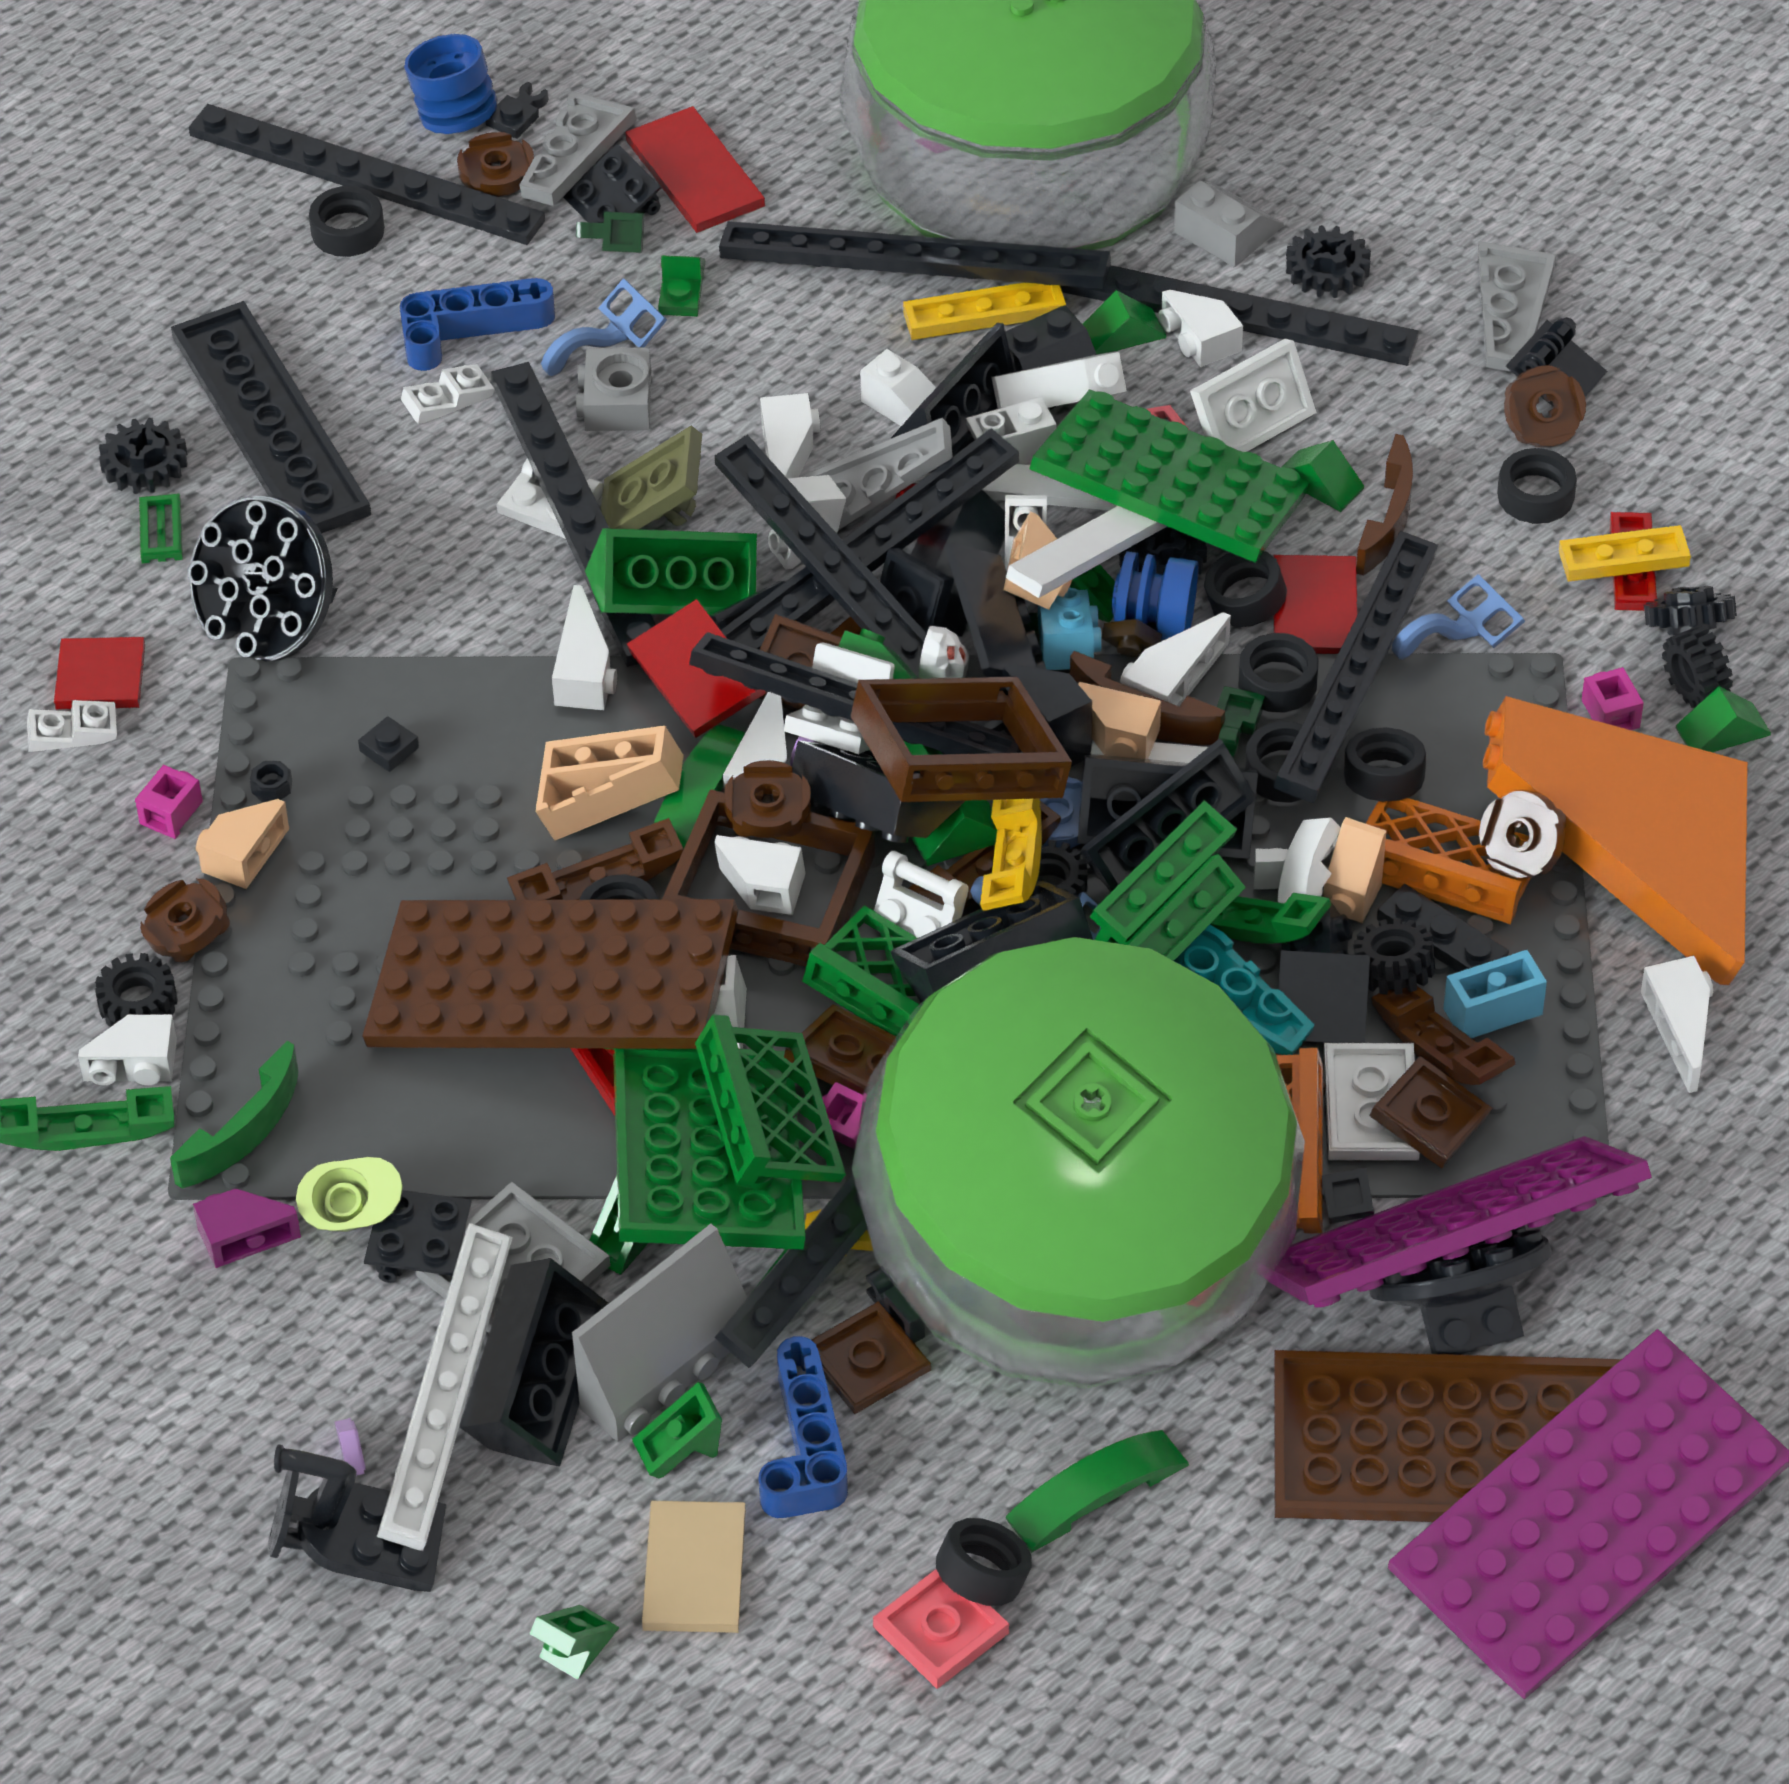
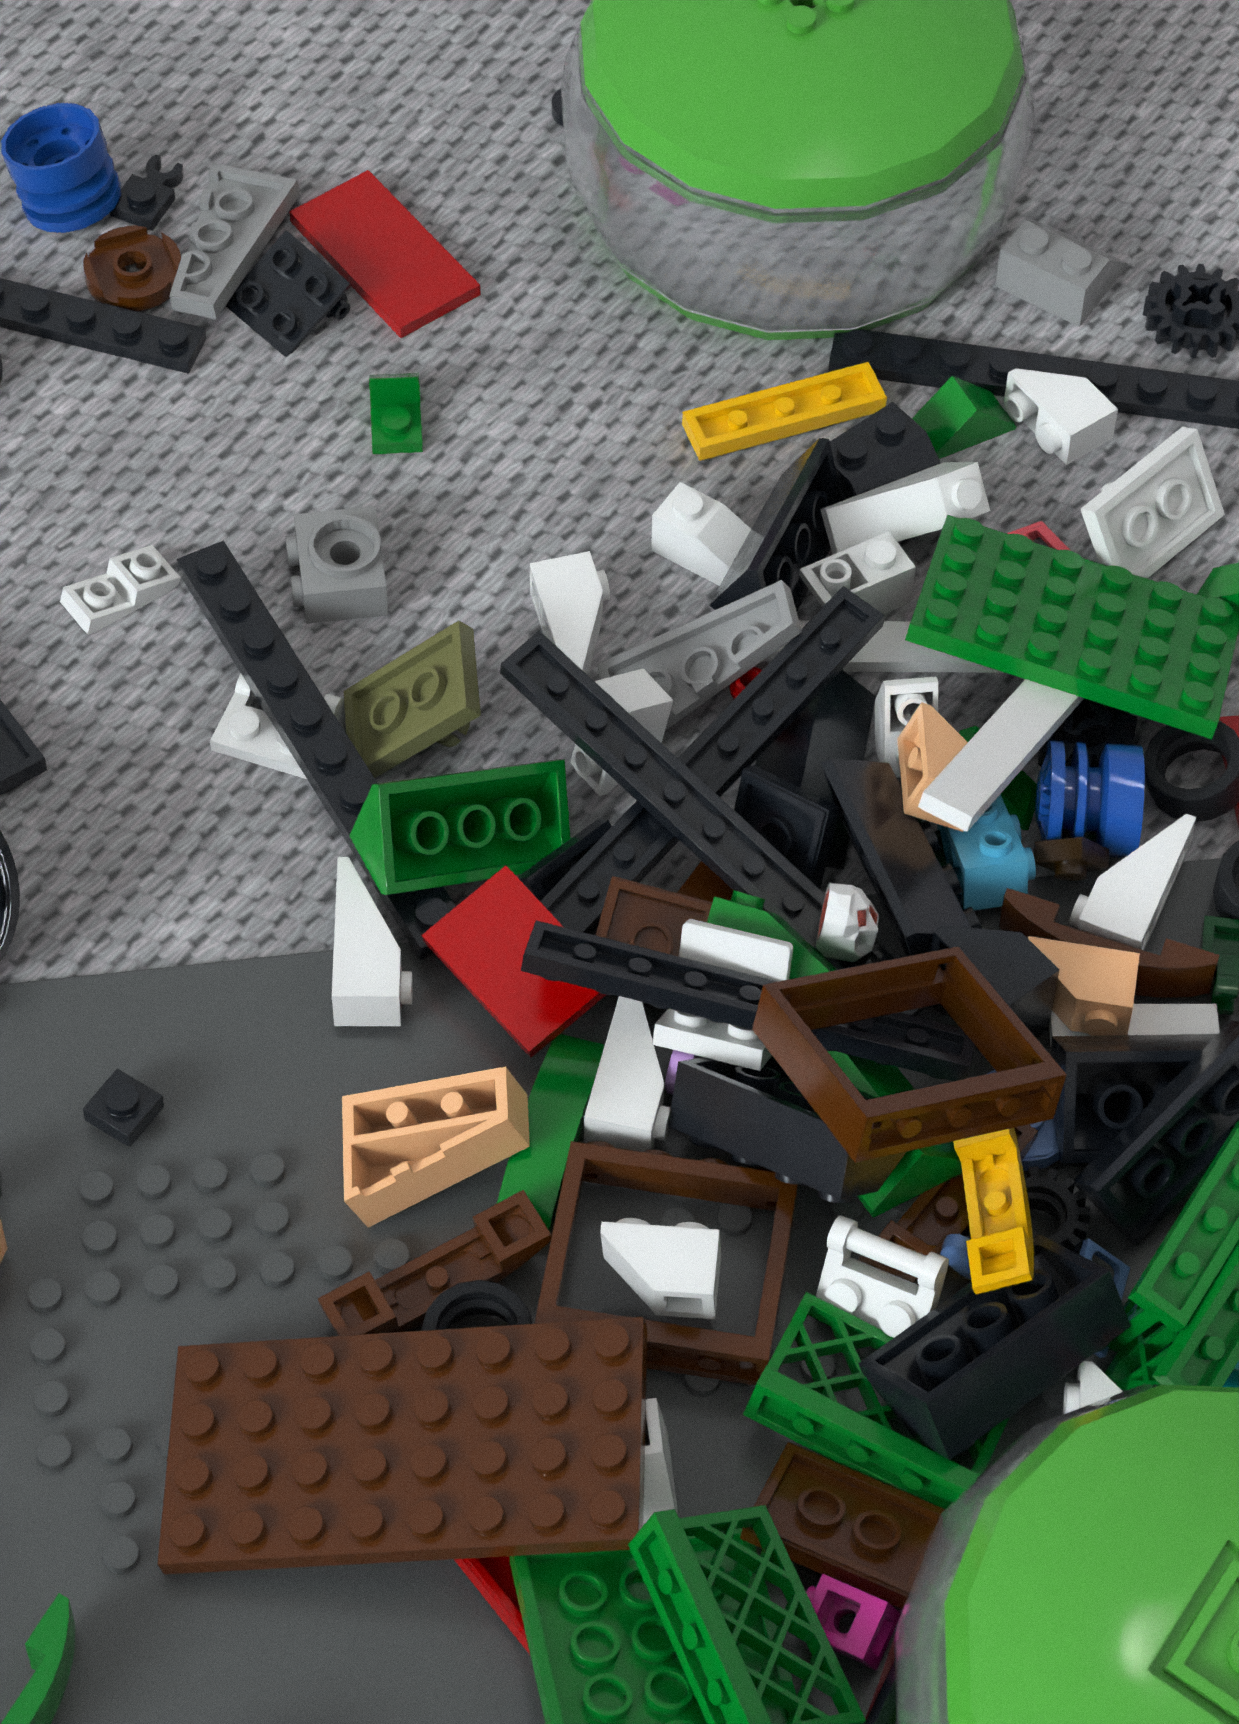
camera: 10 degrees left, 5 degrees up
(471, 312) = (132, 475): blue beam -> none
(618, 330) = (325, 482): medium blue piece -> none
(619, 231) = (306, 347): dark green plate -> none
(773, 819) = (648, 1183): reddish brown plate -> none
(915, 254) = (686, 347): black plate -> none

